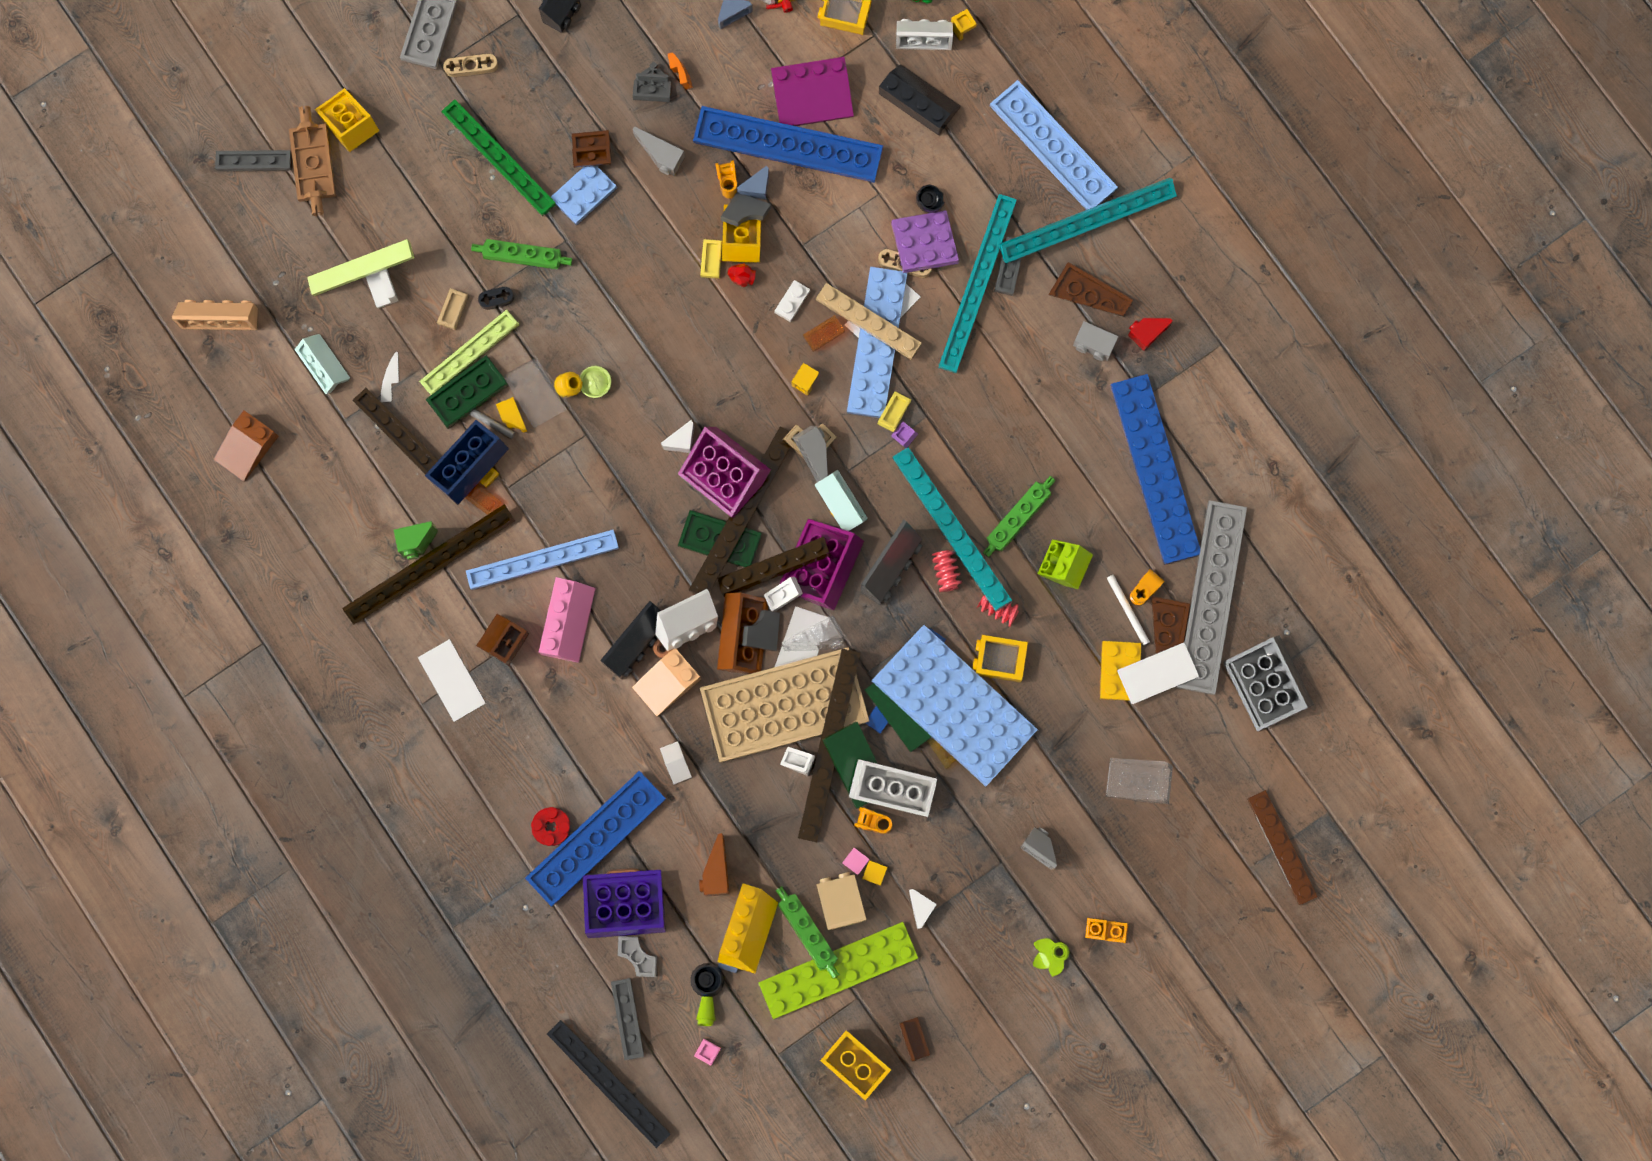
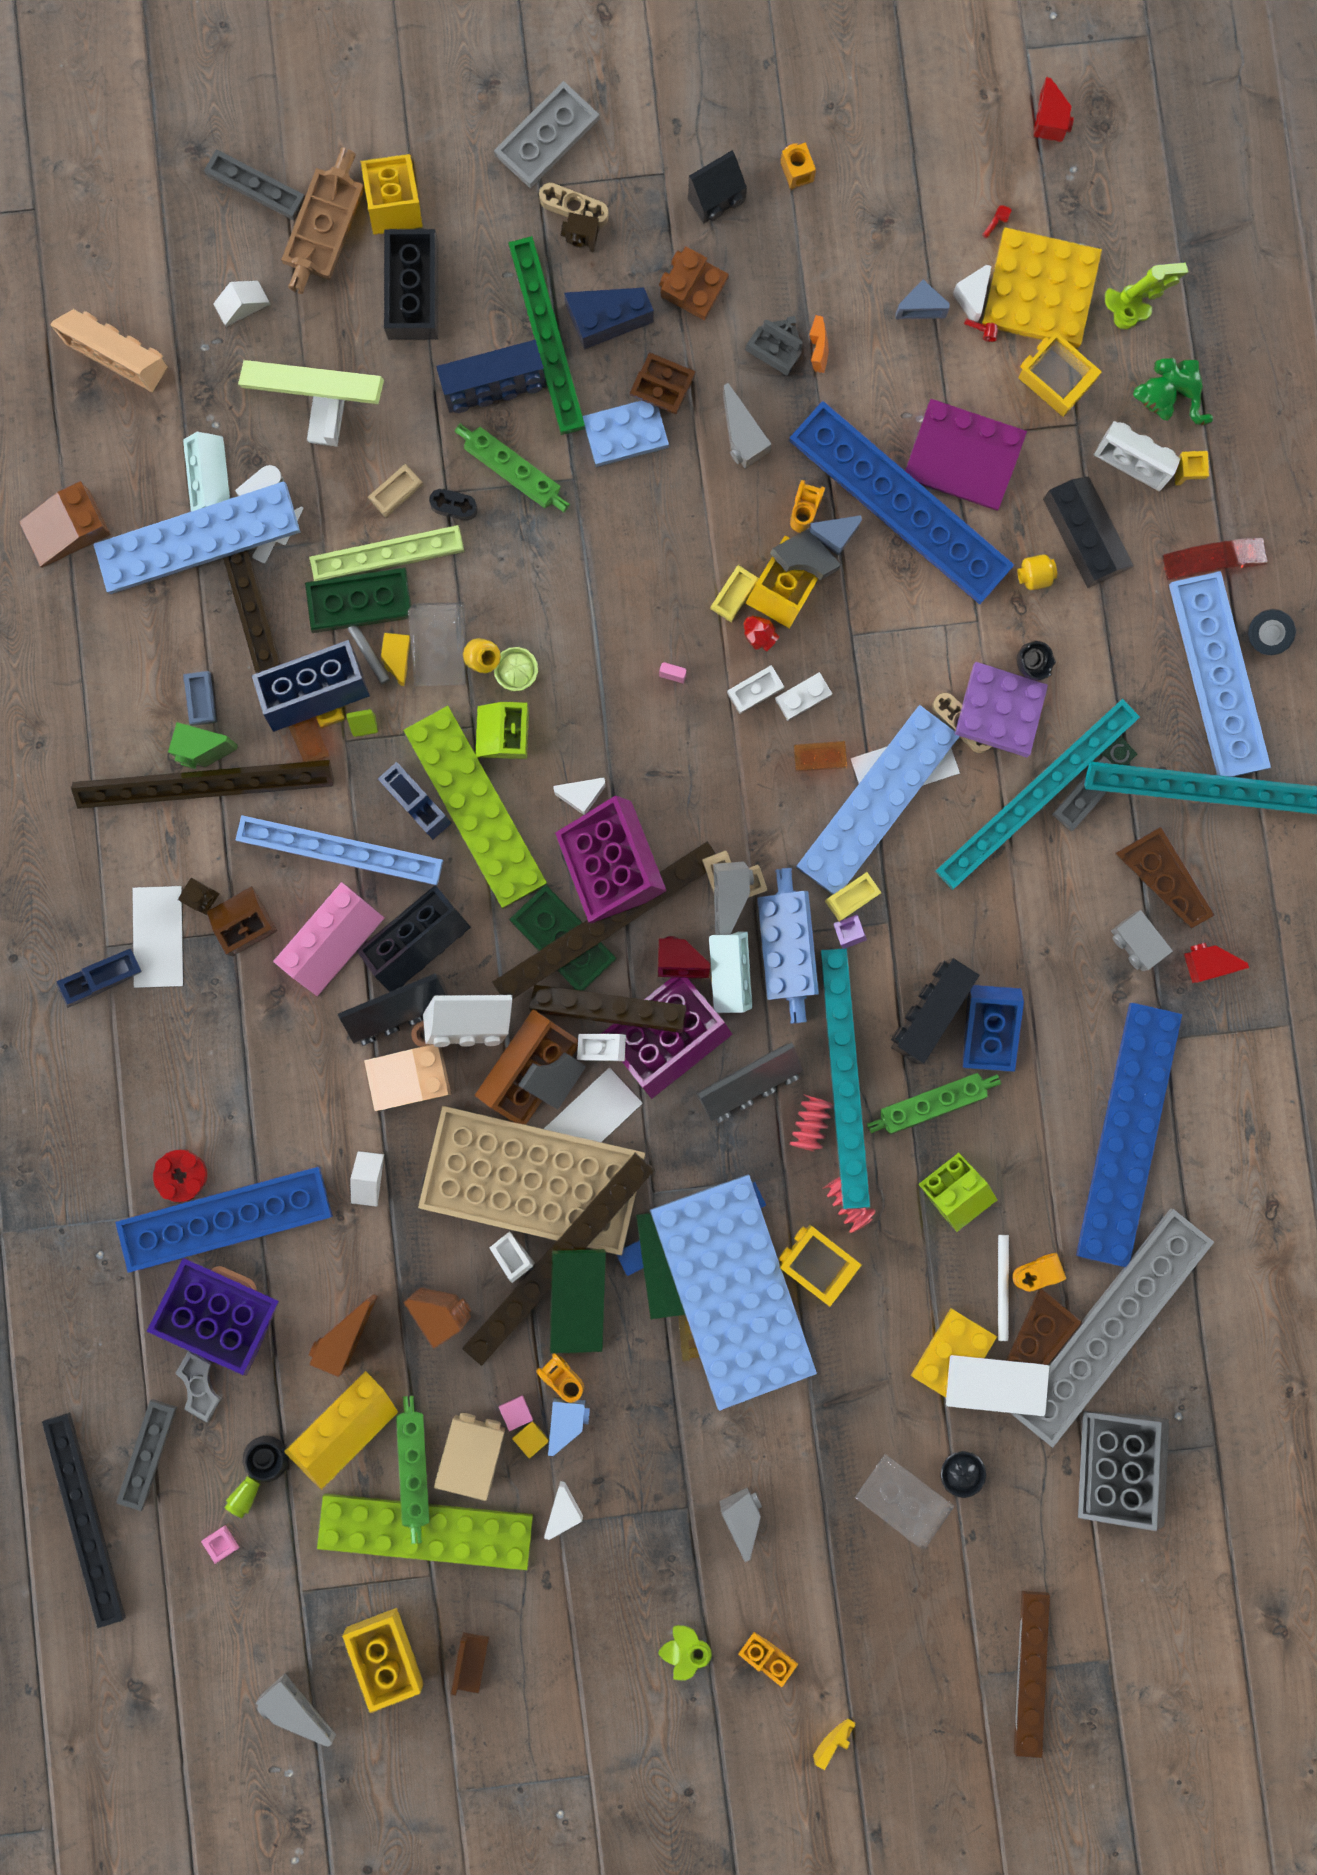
camera: 20 degrees right, 5 degrees up
(284, 240) = (240, 301): none -> white slope
(339, 407) = (197, 537): none -> light blue plate
(362, 352) = (263, 478): none -> white leg
(392, 171) = (411, 284): none -> black brick
(396, 510) = (200, 698): none -> sand blue tile
(427, 727) = (98, 977): none -> dark blue slope
(465, 638) = (198, 896): none -> dark brown brick
(478, 202) = (492, 376): none -> dark blue brick
(484, 79) = (581, 230): none -> dark brown brick
(512, 469) = (362, 722): none -> lime slope
(531, 123) = (608, 313): none -> dark blue wedge
(574, 501) = (414, 800): none -> dark blue slope
(576, 75) = (693, 283): none -> dark orange plate
(607, 425) = (502, 730): none -> lime slope
(616, 485) = (475, 807): none -> lime plate
(622, 590) = (413, 939): none -> black slope
(698, 330) = (672, 672): none -> bright pink tile
(758, 312) = (755, 689): none -> white plate
(771, 816) = (438, 1314): none -> dark orange slope
(804, 379) = (767, 800): yellow panel -> none
(804, 511) = (680, 959): none -> dark red slope
(812, 1132) = (292, 1711): none -> light grey slope
(818, 637) = (618, 1124): clear slope -> none
(868, 321) = (881, 771): tan plate -> none
(869, 465) = (788, 945): none -> medium blue plate
(892, 847) = (566, 1423): none -> light blue slope
(893, 788) = (605, 1355): white brick -> none
(900, 142) = (1037, 572): none -> yellow head
(986, 459) = (934, 1011): none -> black brick
(1009, 72) = (1214, 557): none -> clear red slope
(1015, 228) = (1119, 752): none -> clear green tile
(1030, 447) = (992, 1028): none -> blue slope
(1071, 101) = (1272, 632): none -> black wheel
(1167, 742) = (963, 1474): none -> black hat
(1180, 953) = (836, 1737): none -> yellow slope

